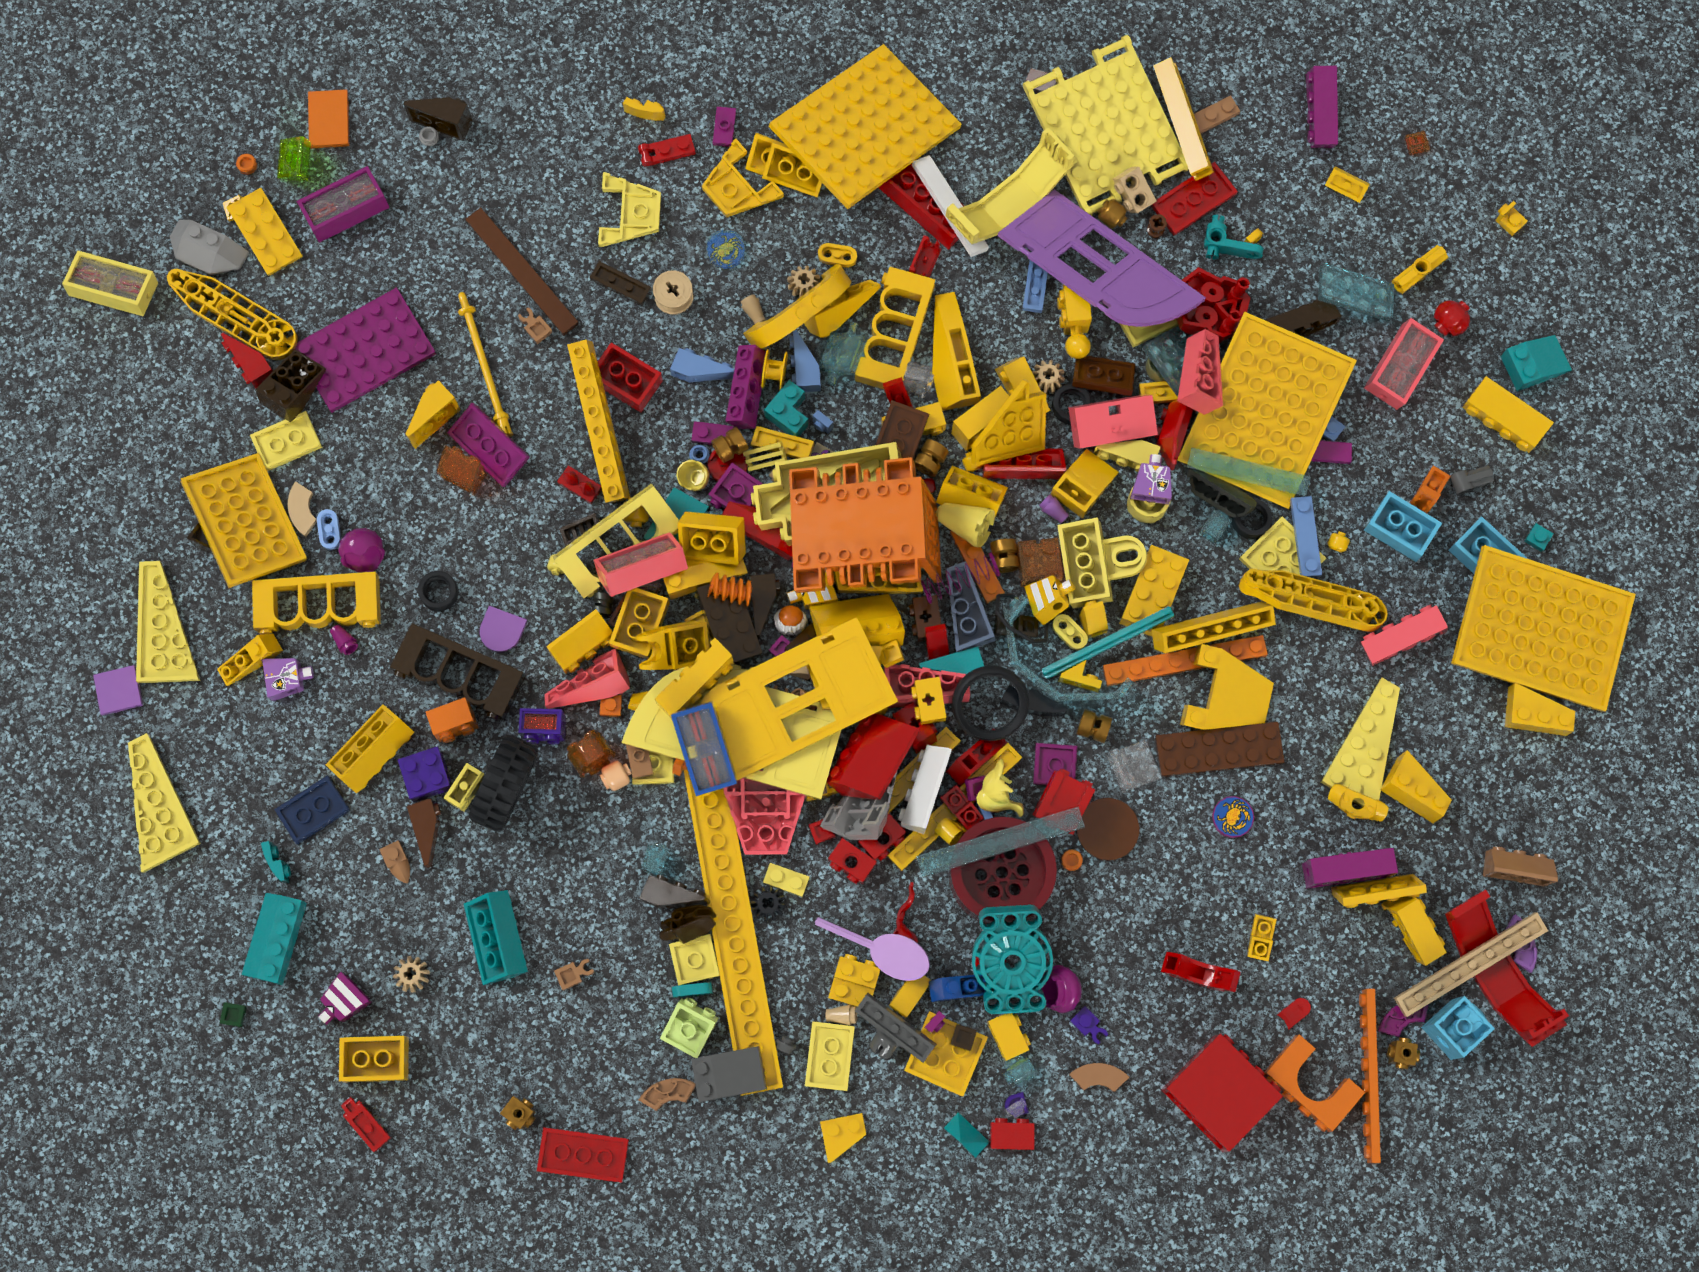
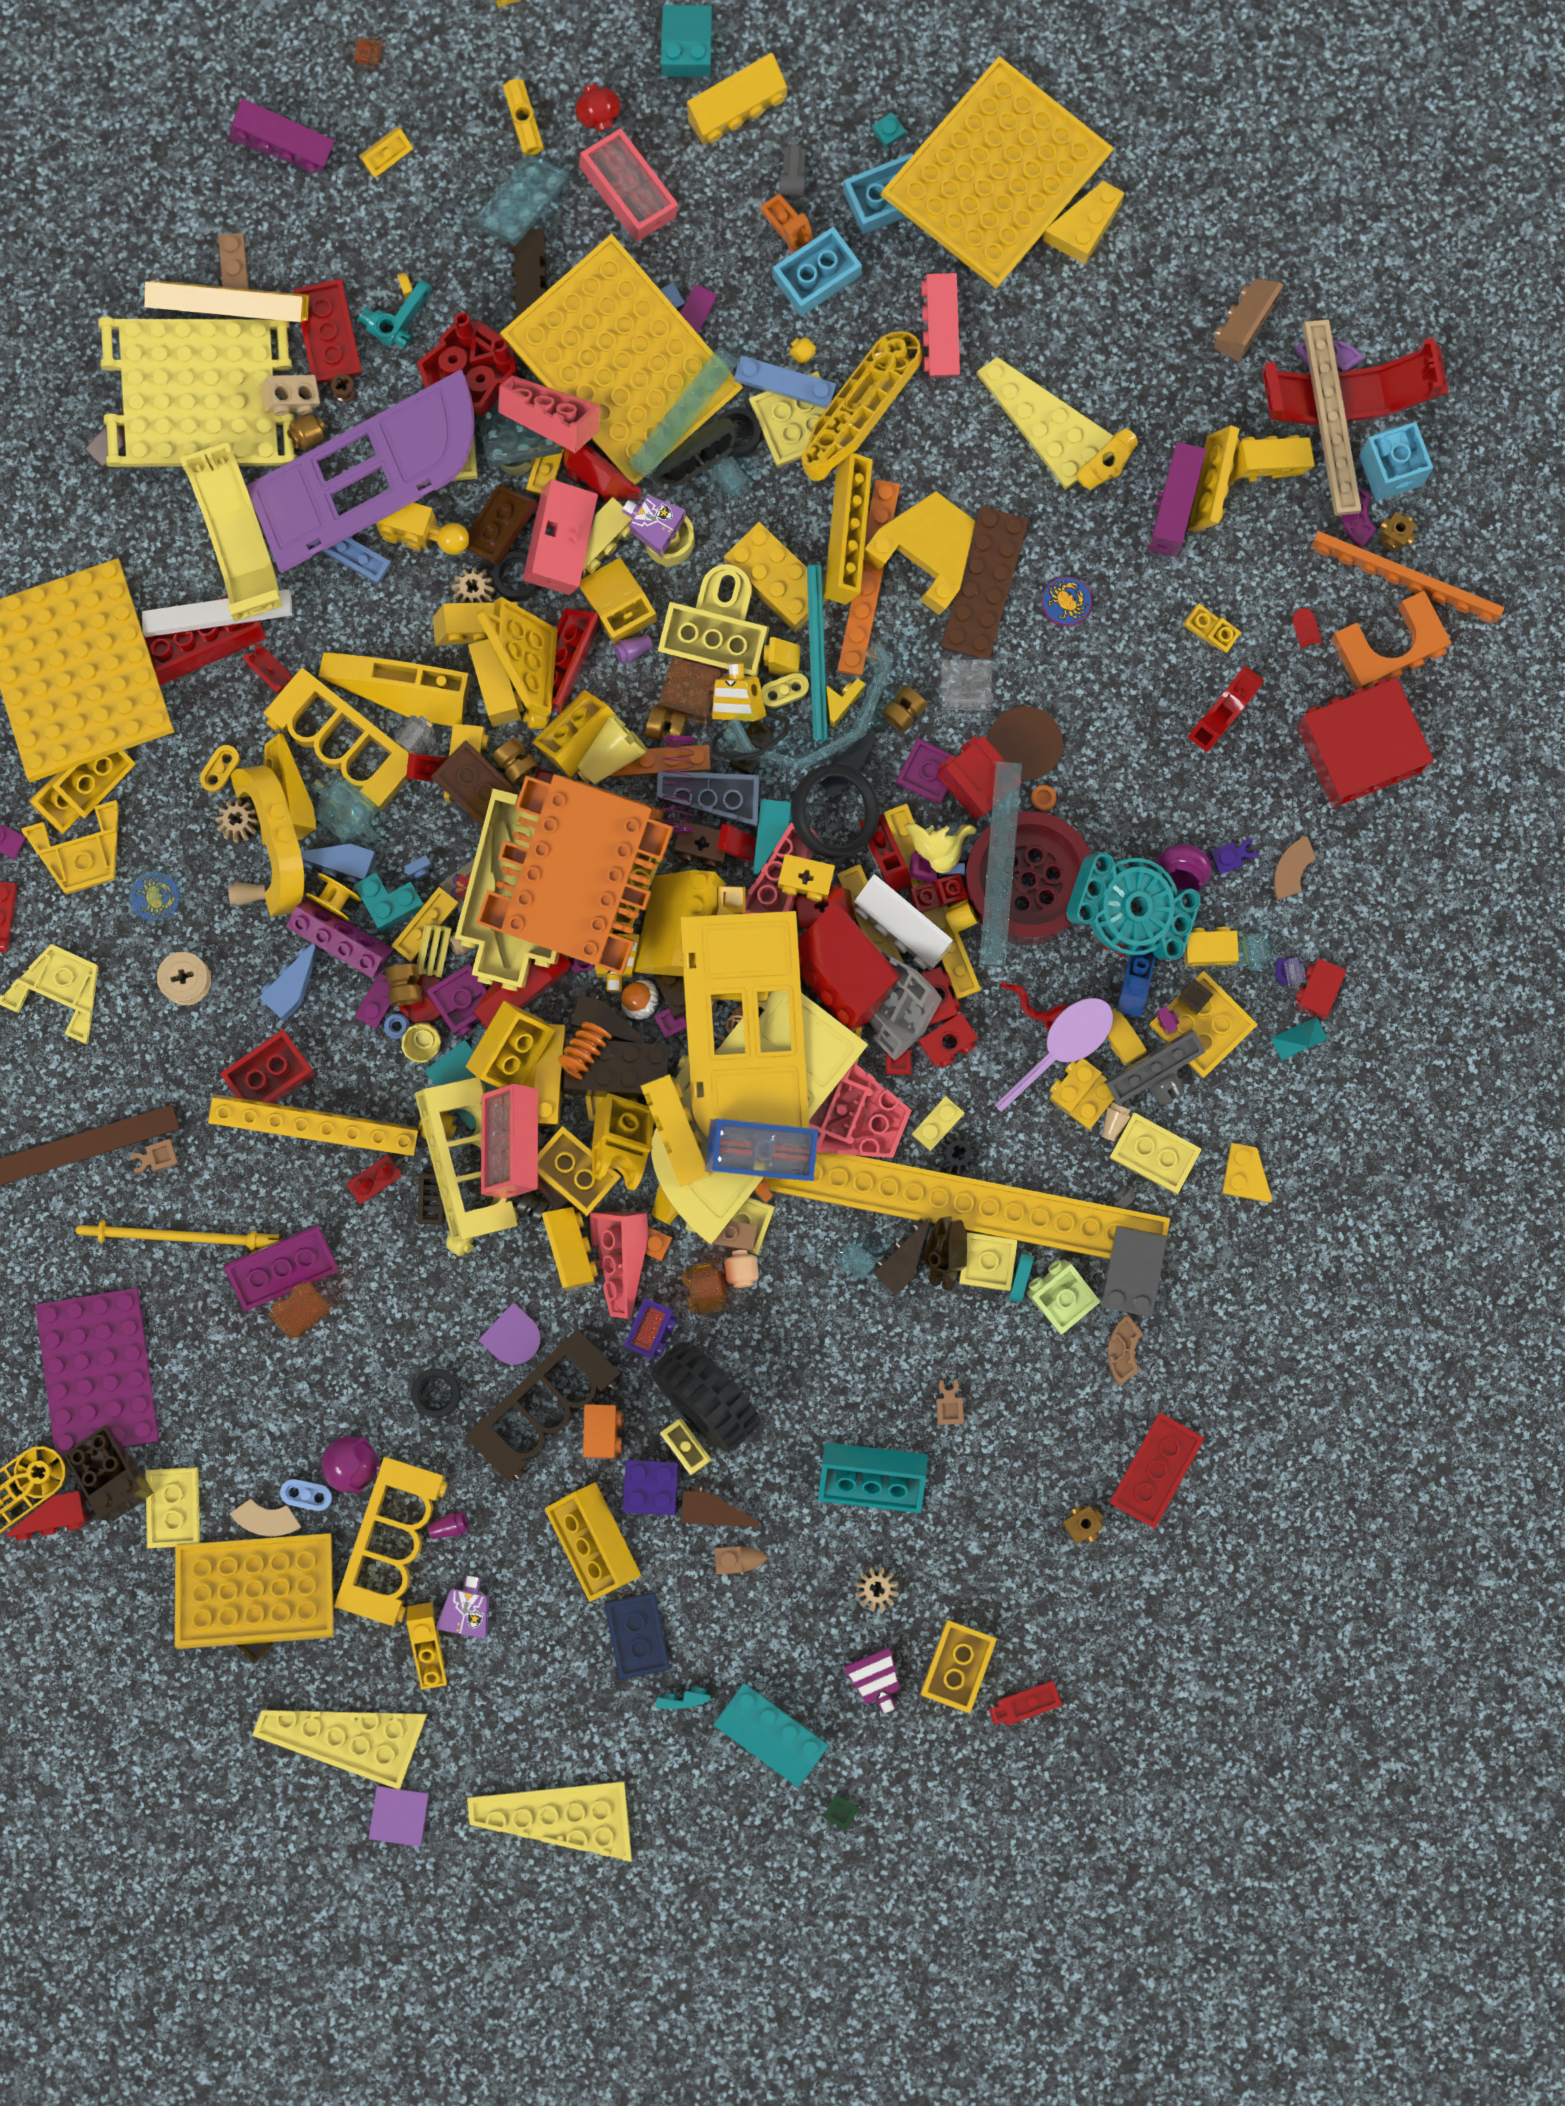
camera: 65 degrees left, 5 degrees up
(432, 412) = (211, 1311): yellow slope -> none
(620, 283) = (145, 1036): dark brown plate -> none
(1416, 788) = (1116, 390): yellow wedge -> none

